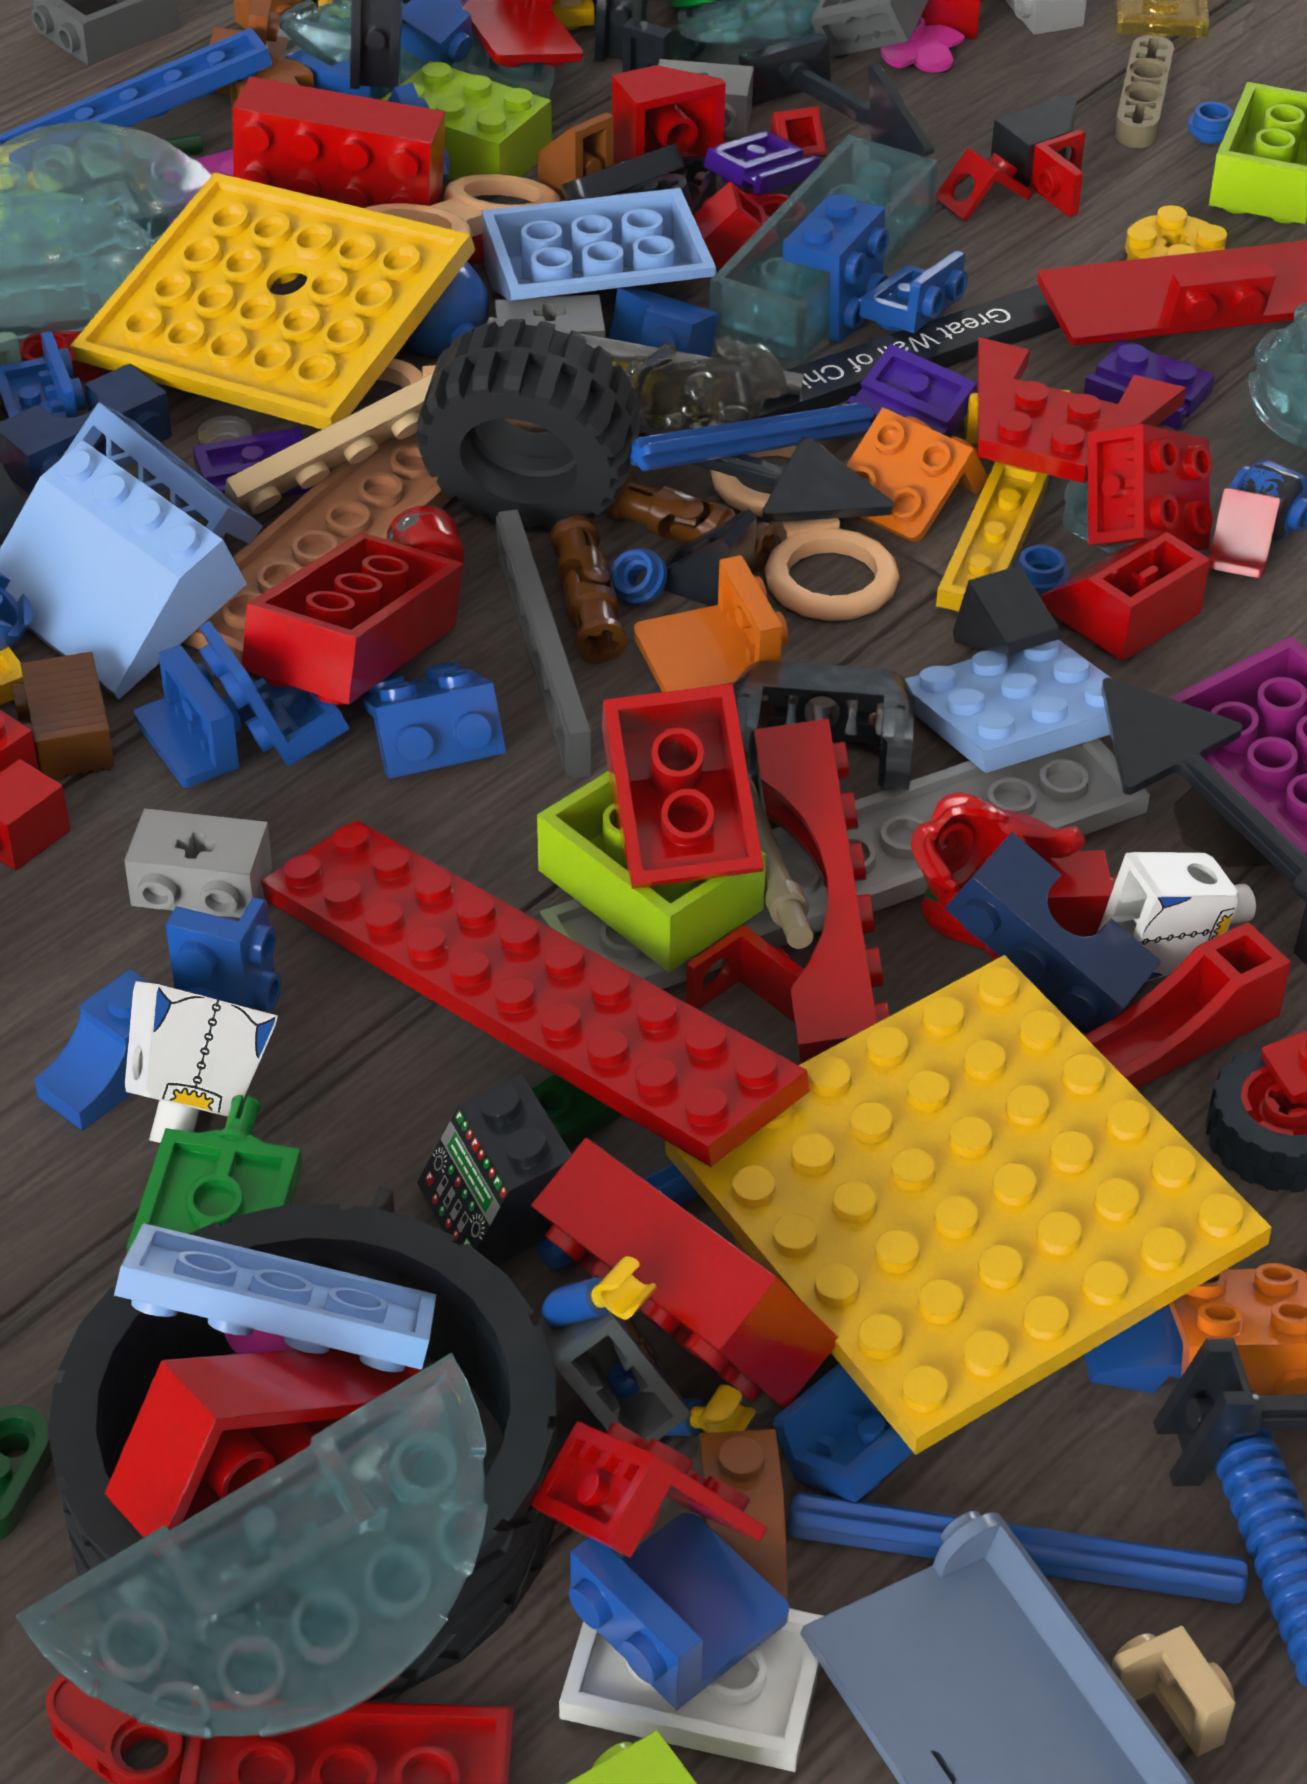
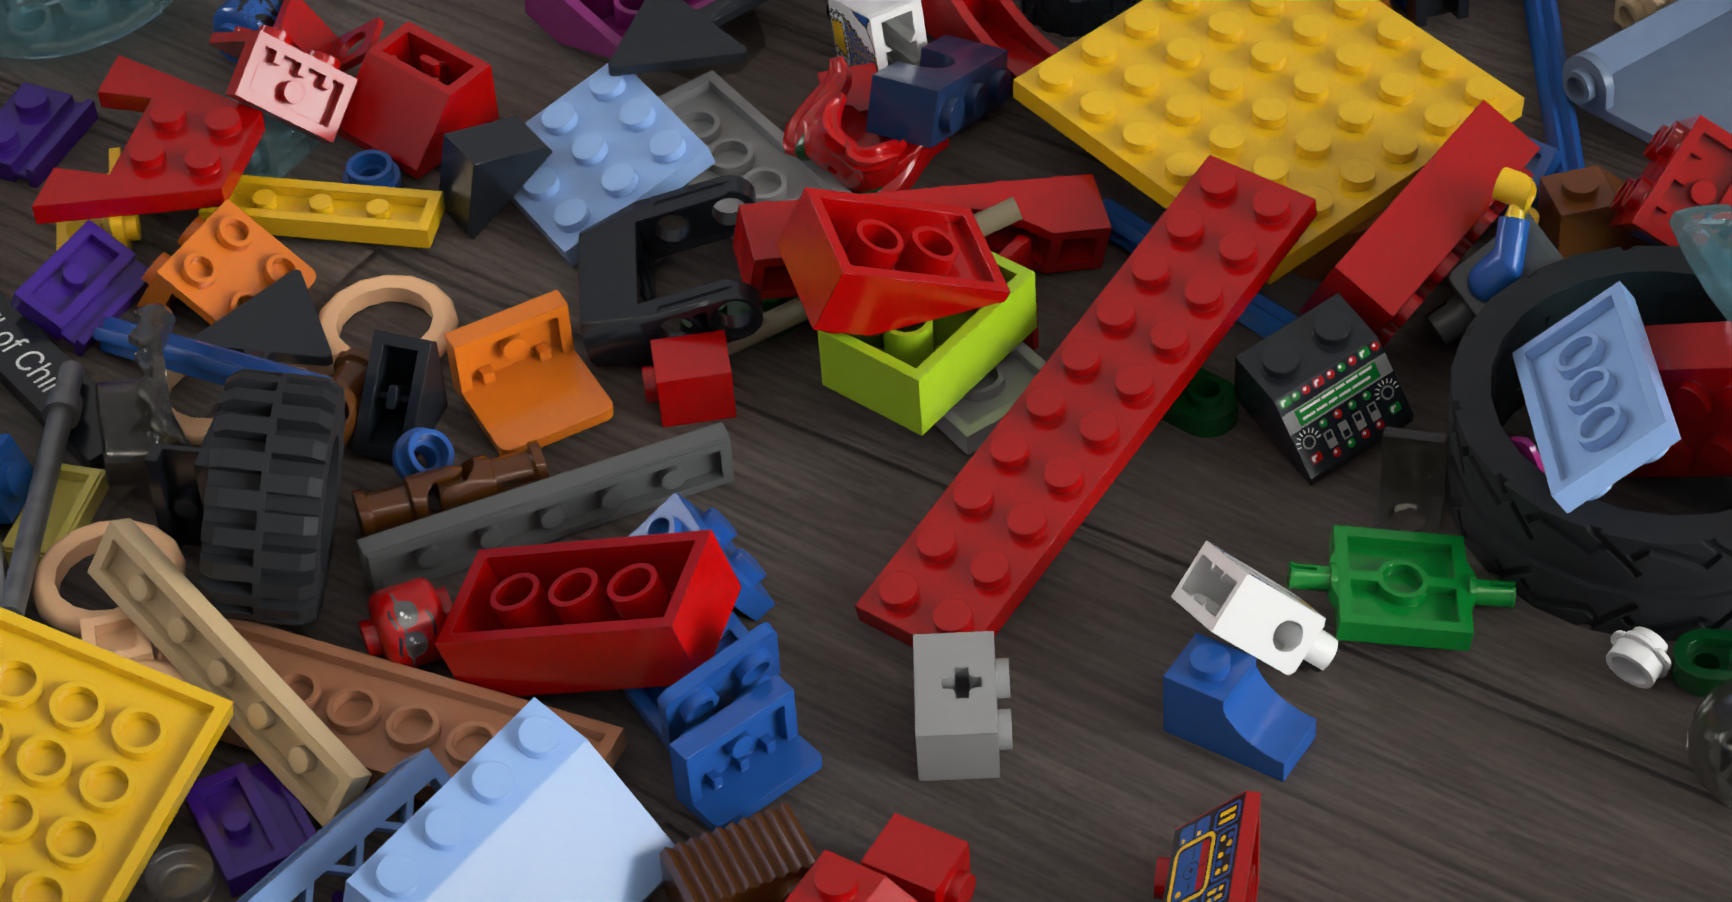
camera: 95 degrees left, 0 degrees up
(34, 1379) = (1638, 656): none -> white plate
(225, 956) = (1124, 614): blue bracket -> none

